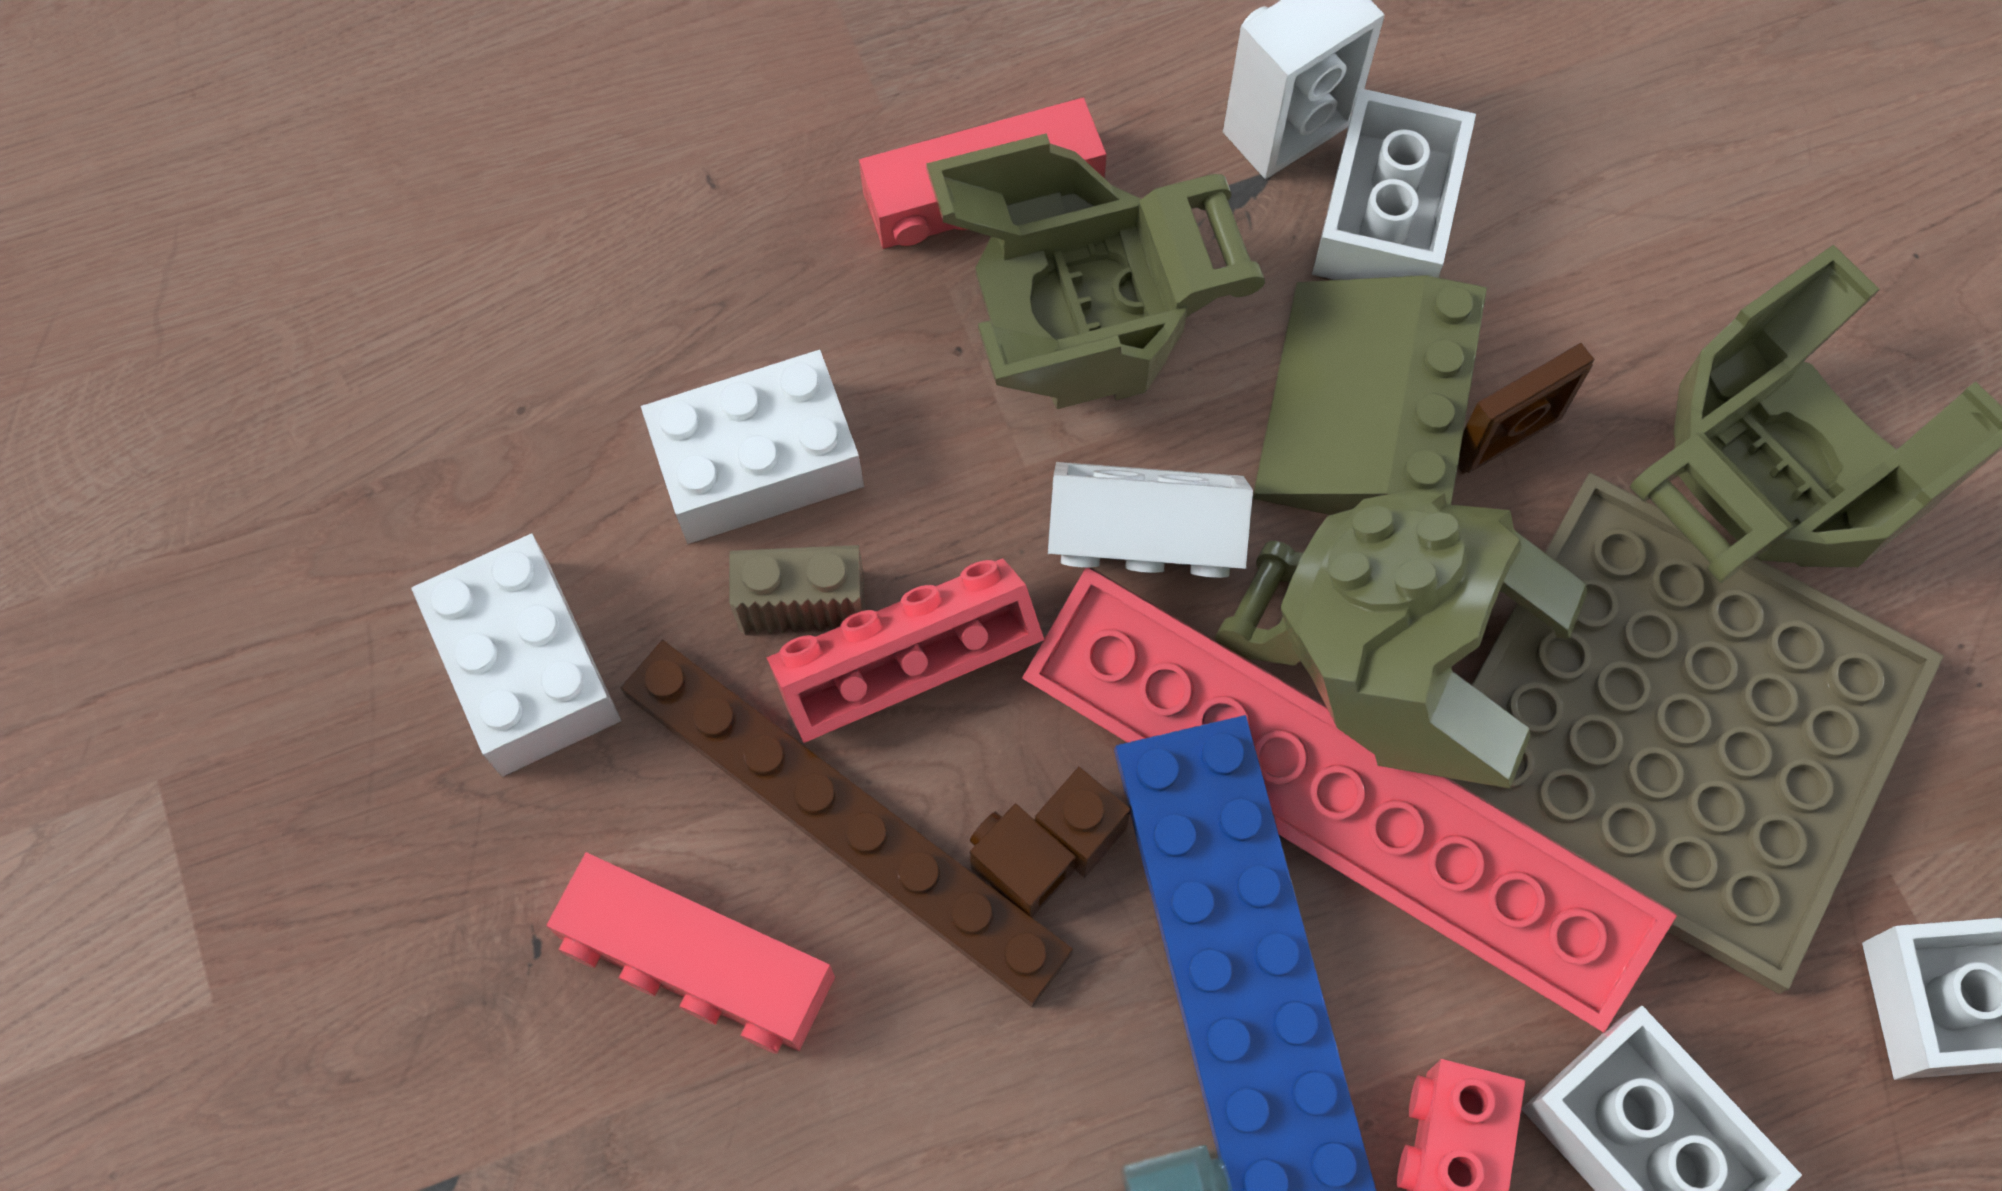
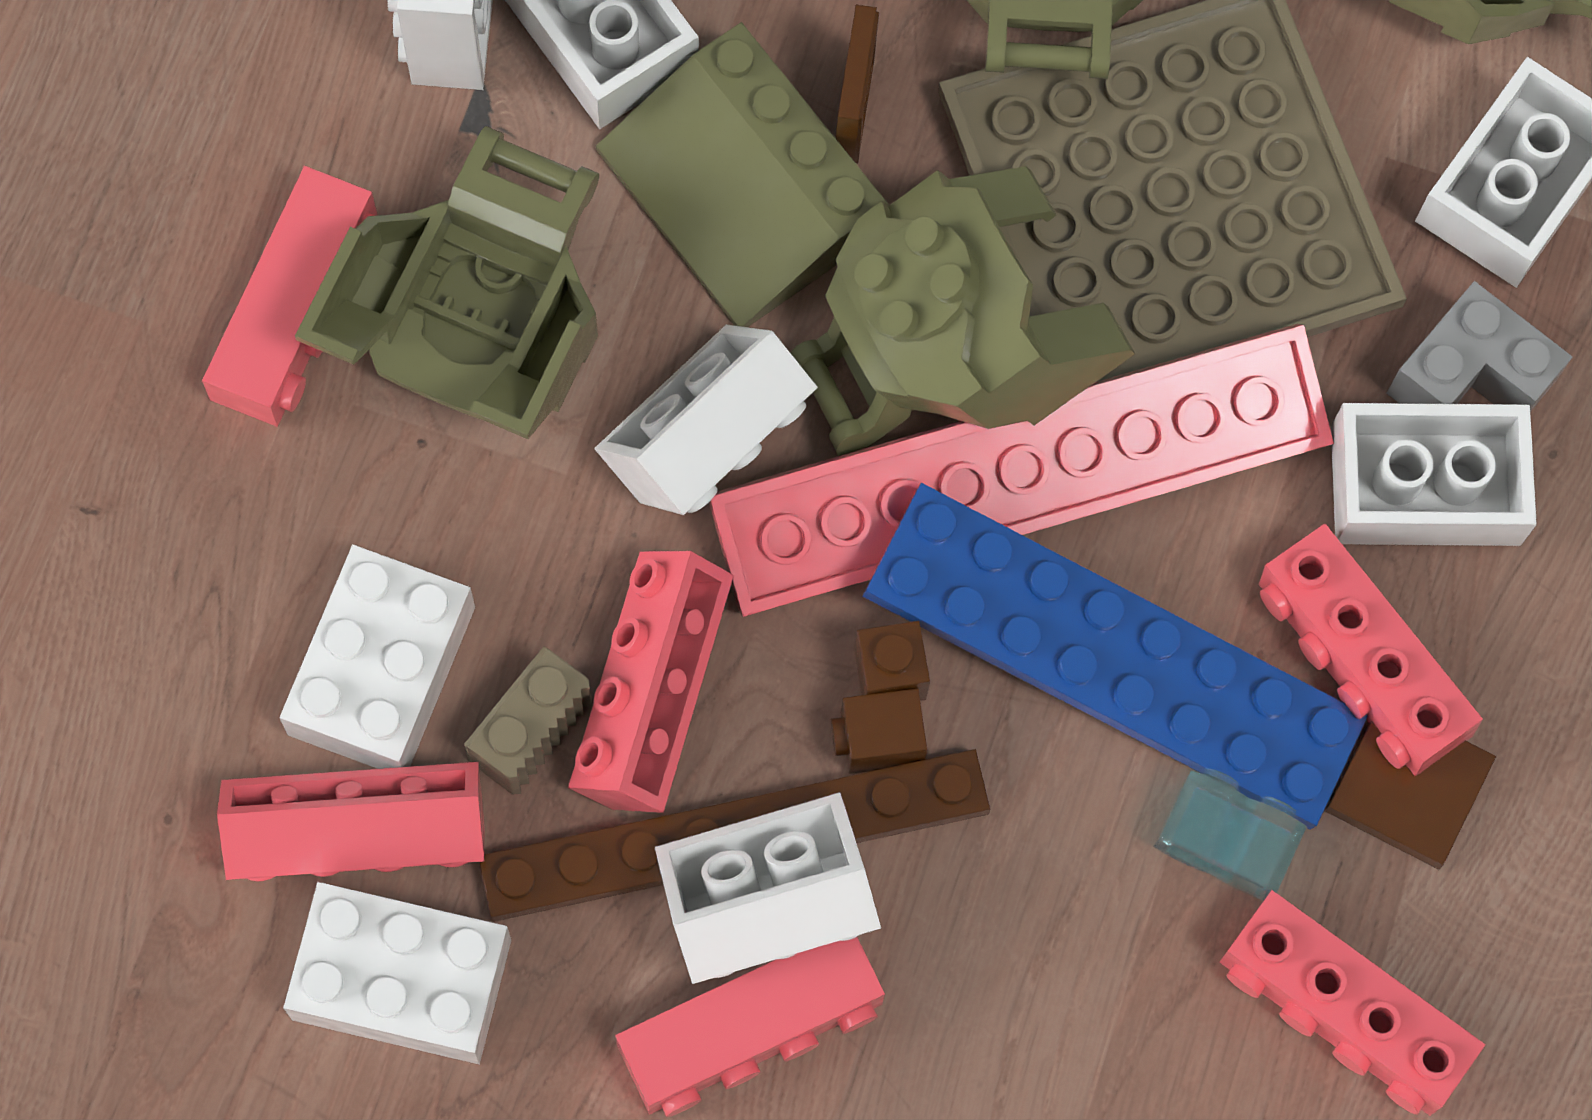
camera: 55 degrees left, 5 degrees up
(610, 525) = (351, 821): none -> coral brick
(800, 871) = (766, 888): none -> white brick
(1814, 1094) = (1481, 348): none -> light grey brick

